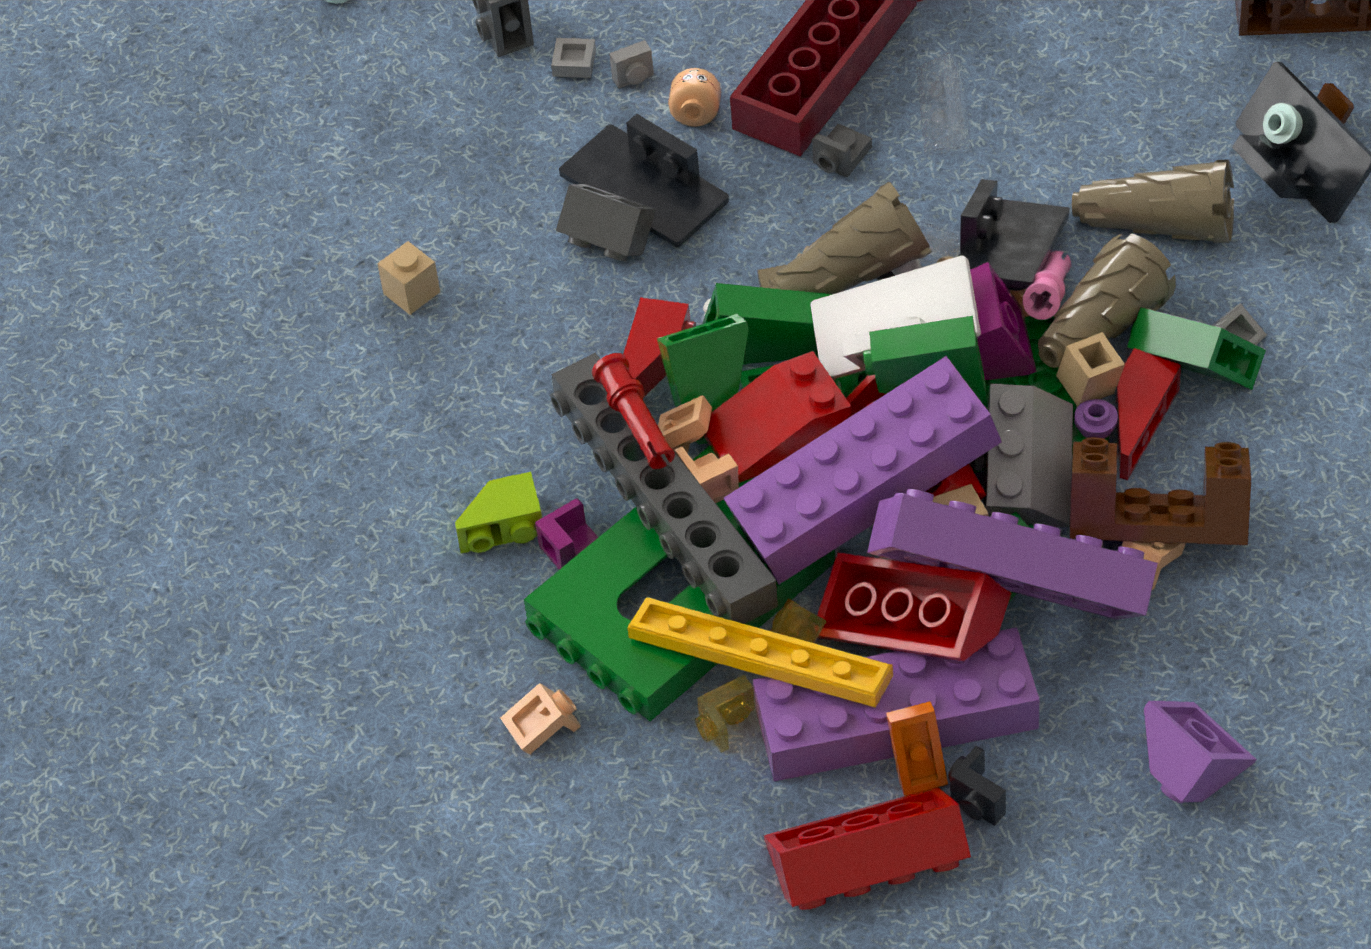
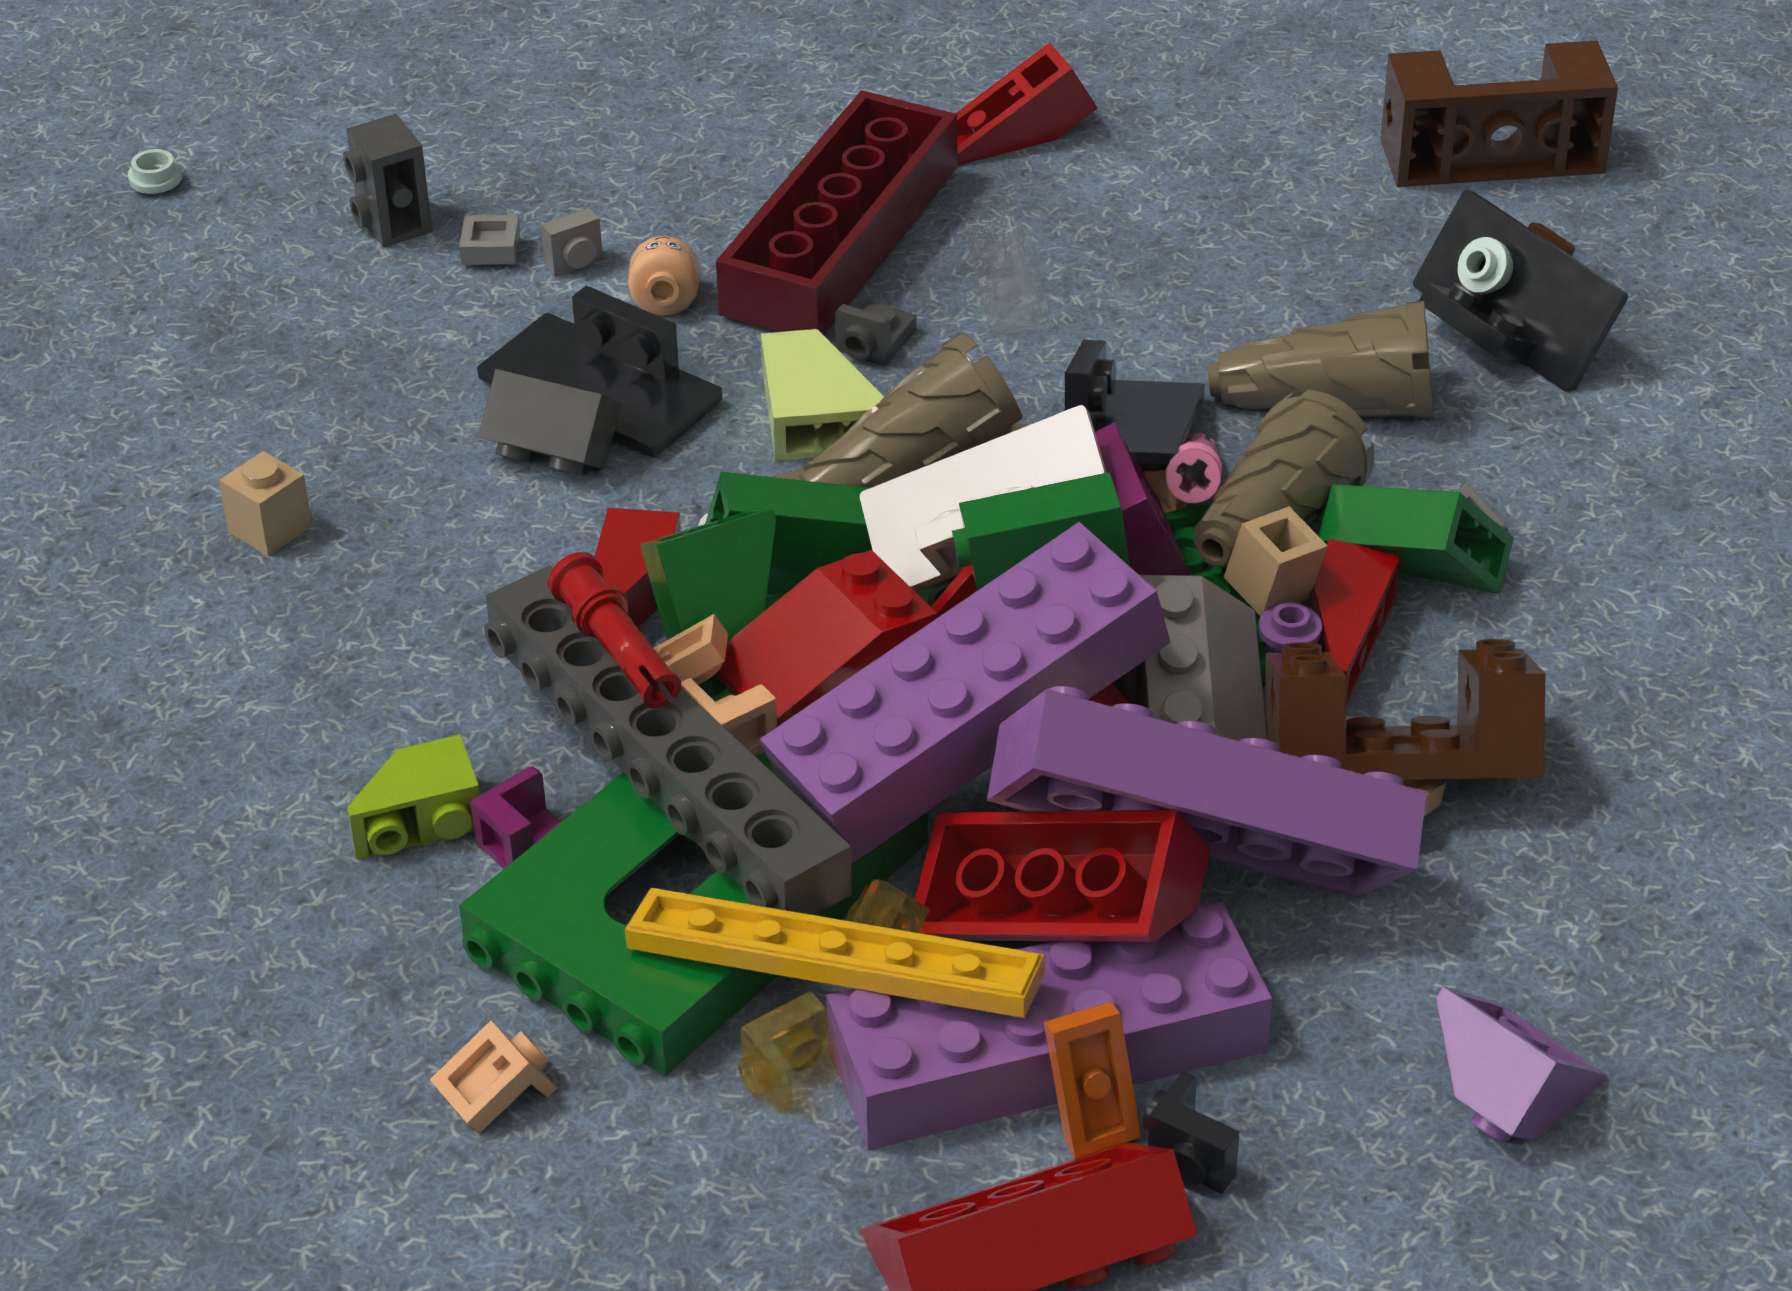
camera: 10 degrees left, 10 degrees down
(791, 205) = (810, 392): none -> yellowish green slope

